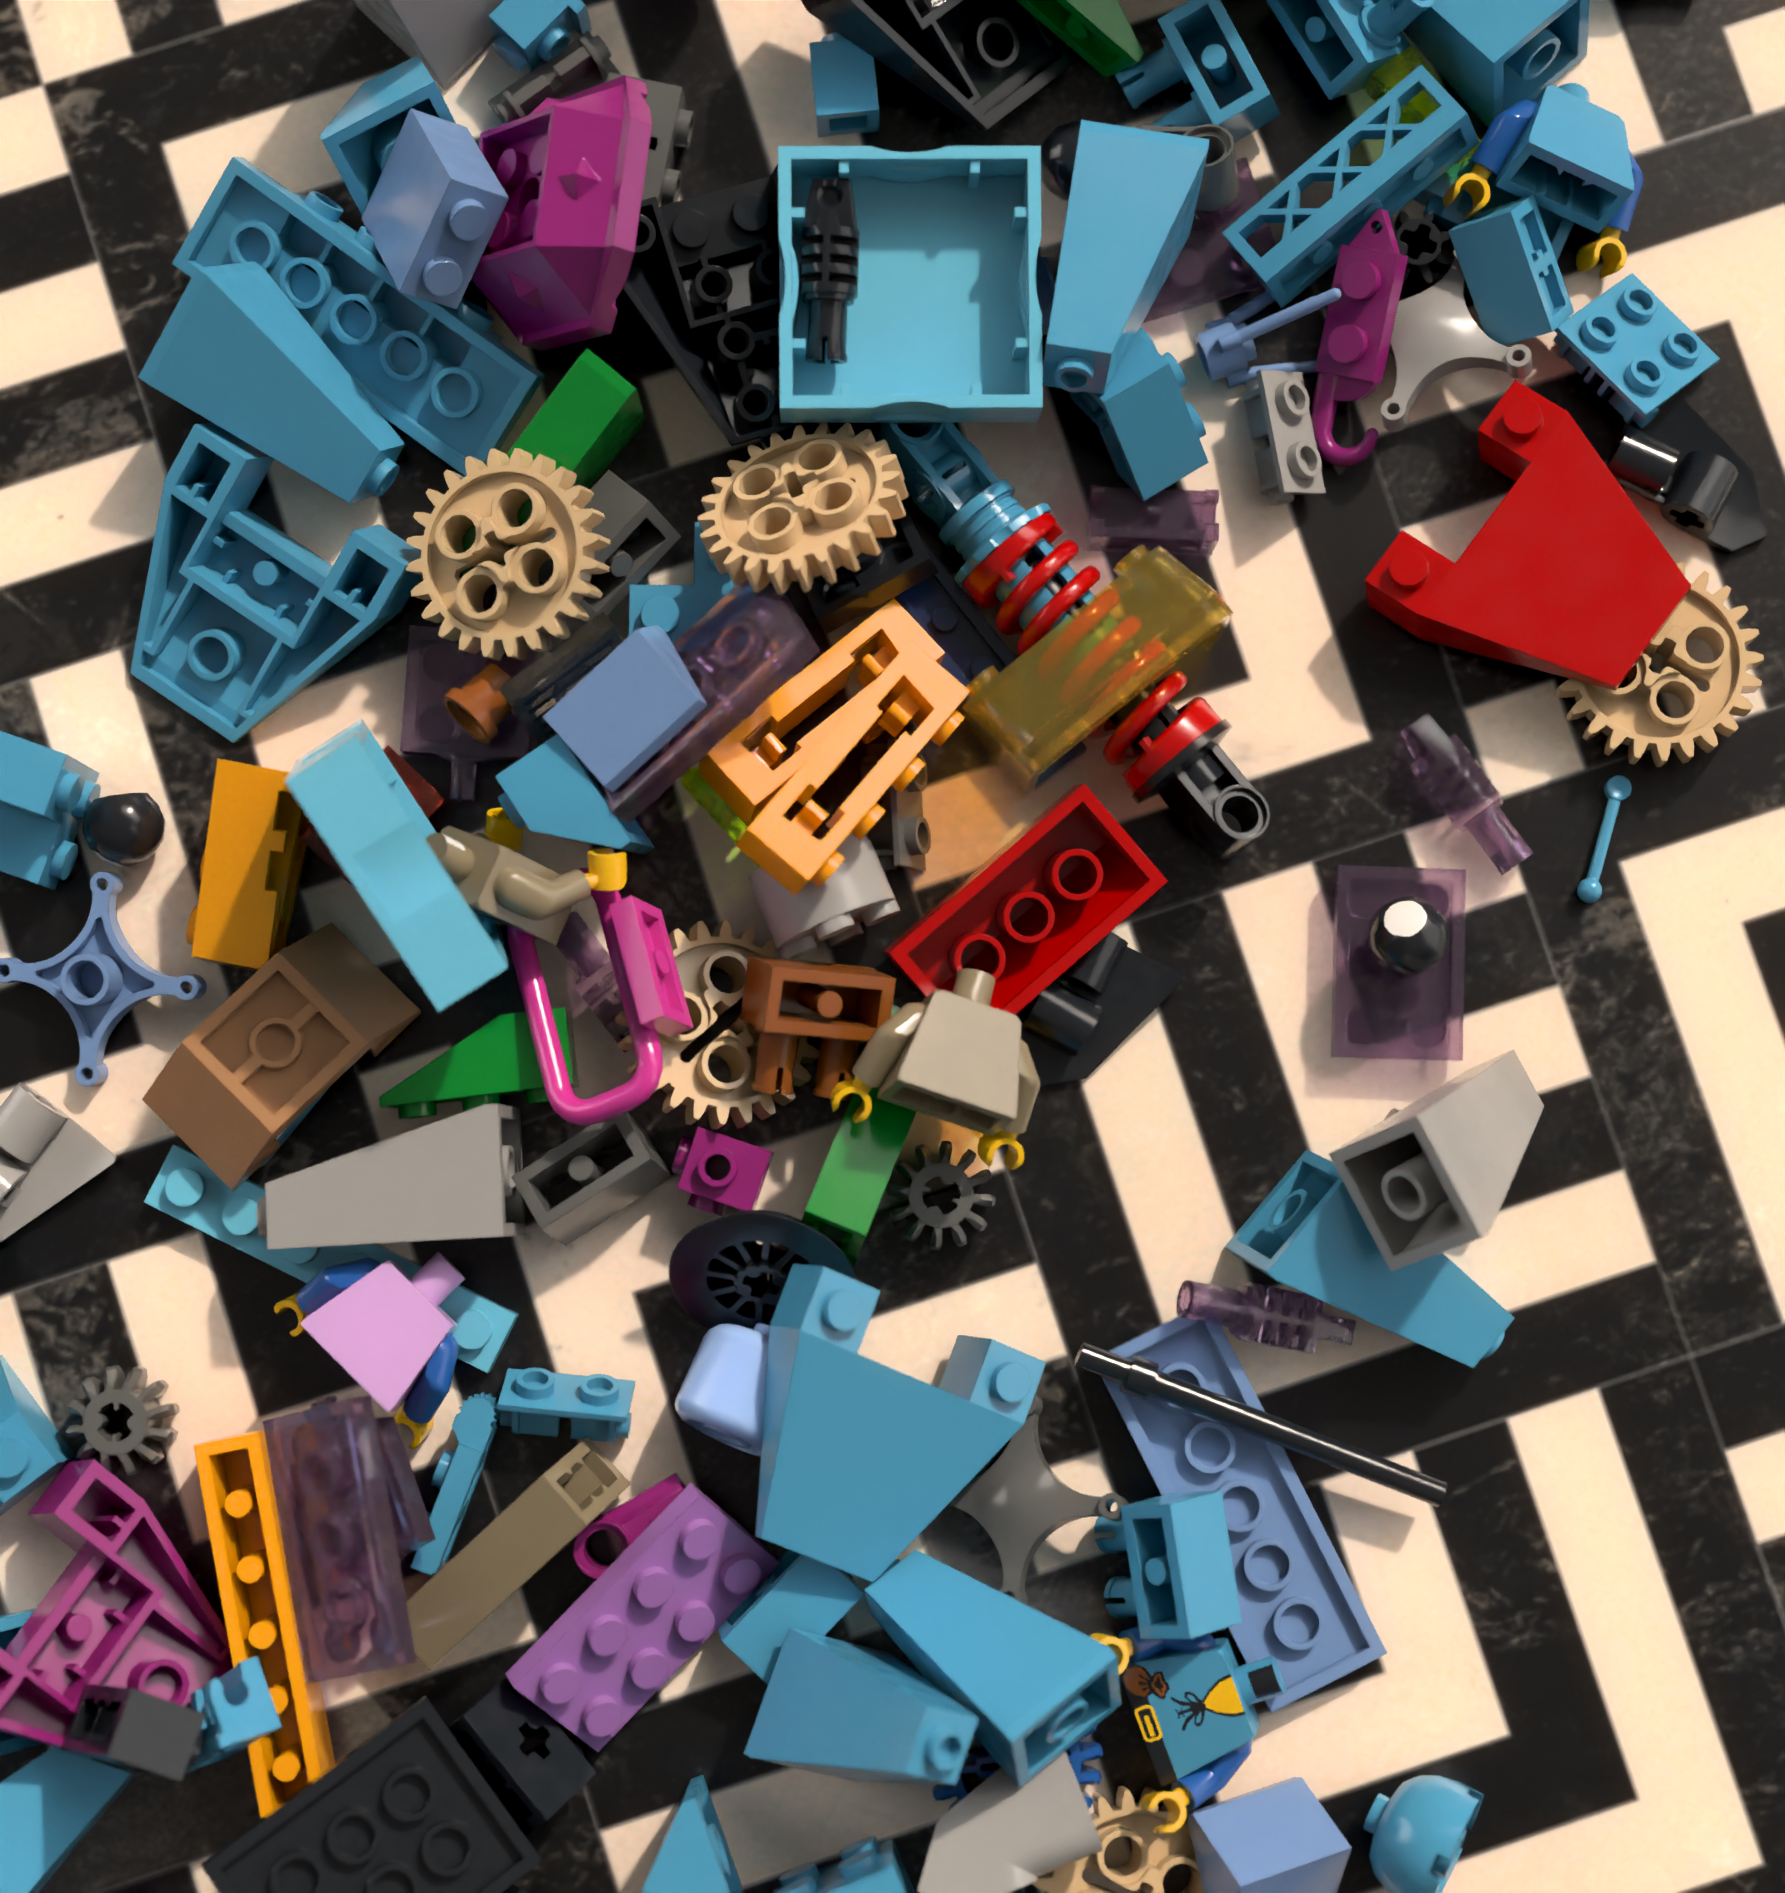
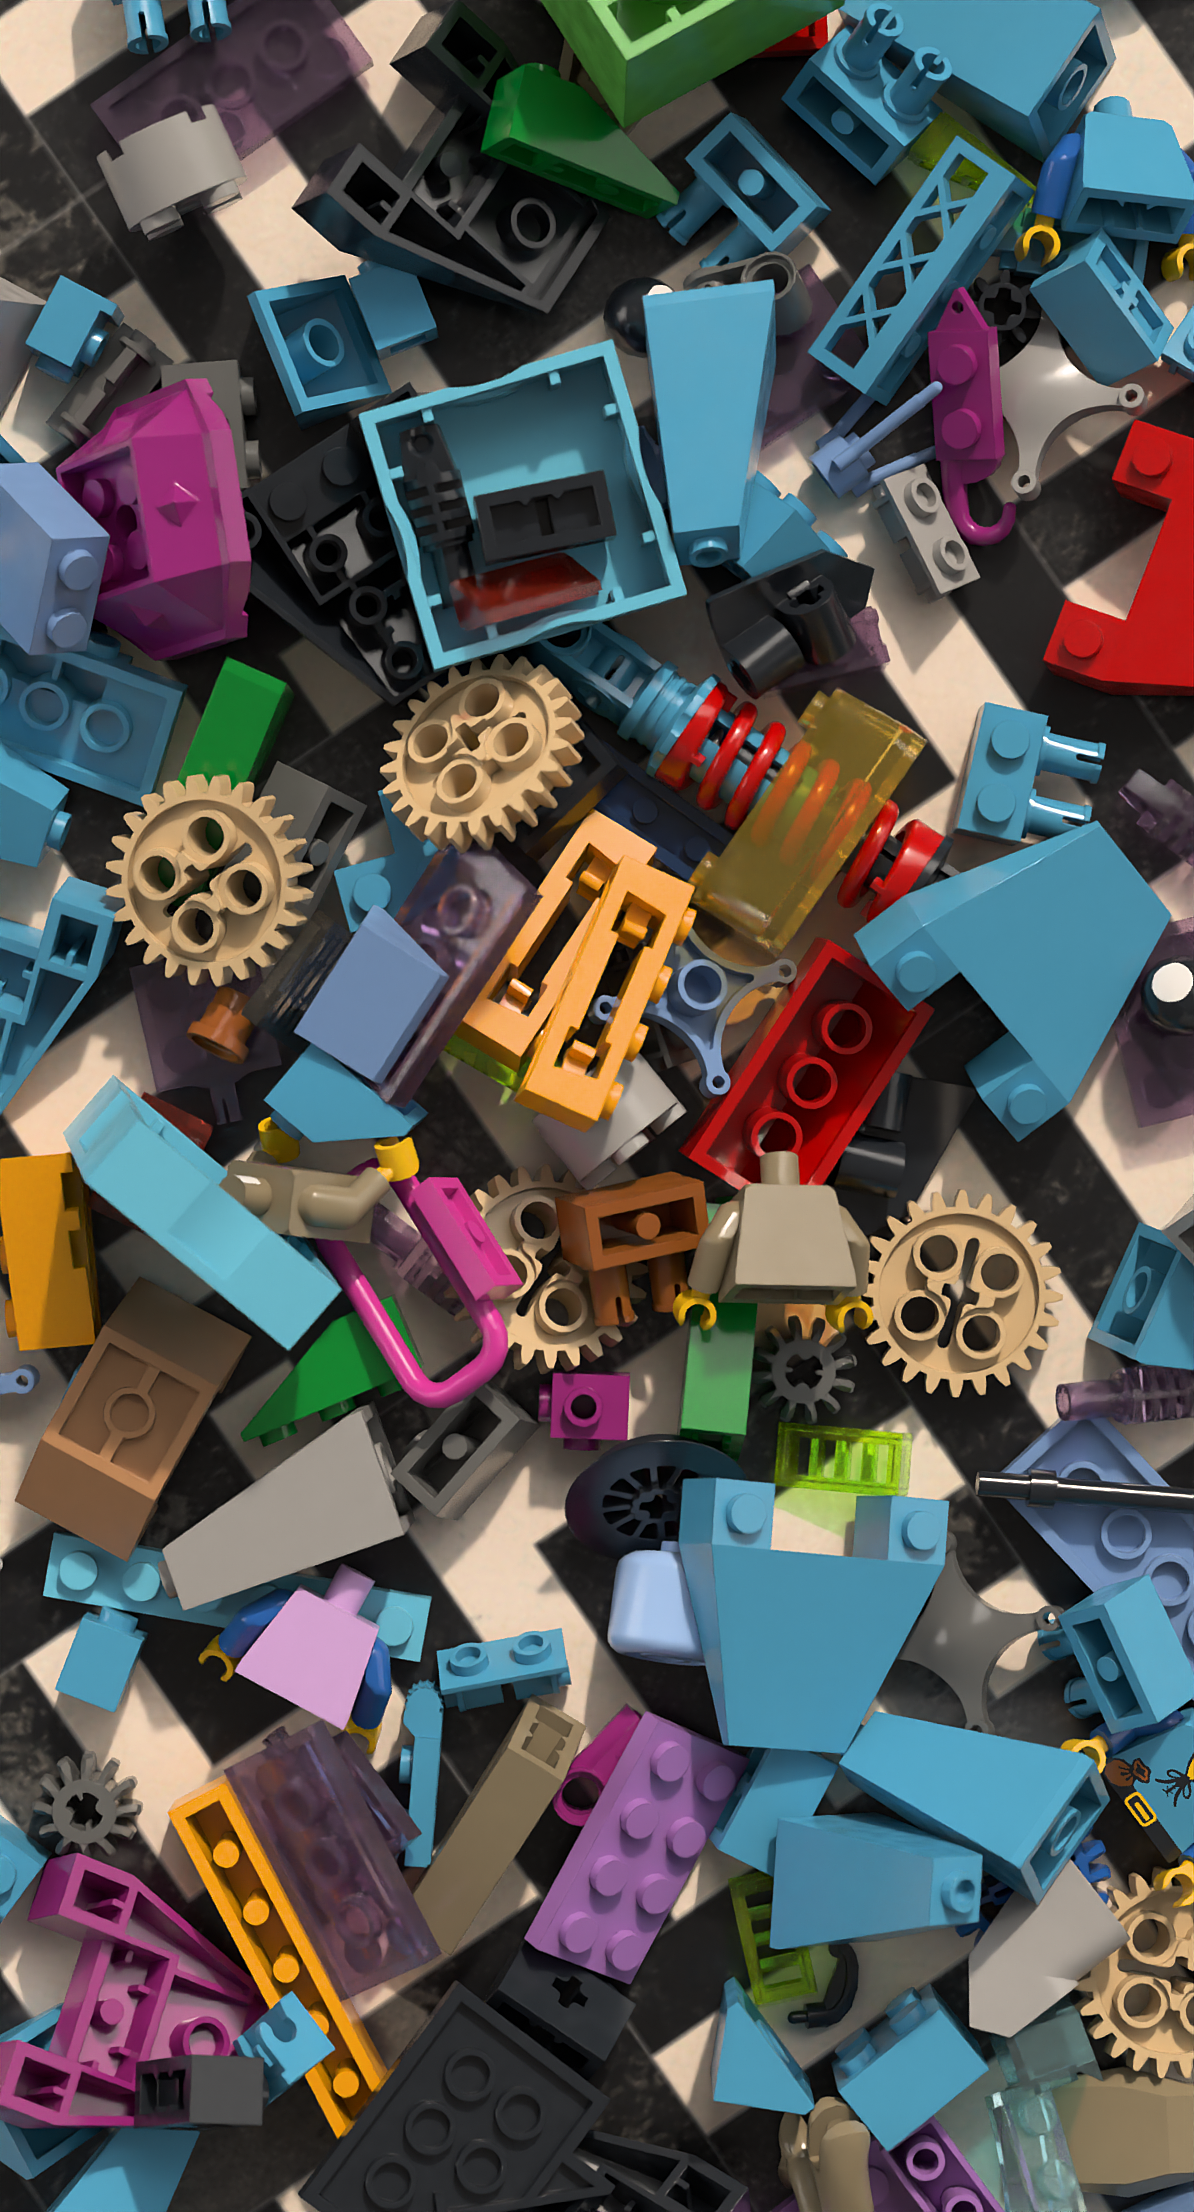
camera: 15 degrees left, 5 degrees up
(181, 1279) = (102, 1658): none -> dark azure brick
(743, 1803) = (777, 1992): none -> clear neon green slope
(760, 99) = (319, 348): none -> dark azure slope
(801, 1821) = (838, 1995): none -> black piece
(885, 362) = (521, 589): none -> clear red slope
(927, 297) = (544, 517): none -> black brick
(943, 806) = (700, 1000): none -> medium blue piece
(1007, 1313) = (897, 1466): none -> clear neon green slope
(1132, 468) = (789, 618): none -> black panel
(1161, 1197) = (1013, 1309): none -> tan gear
(1285, 697) = (1000, 771): none -> dark azure brick
(1297, 846) = (1048, 947): none -> dark azure wedge

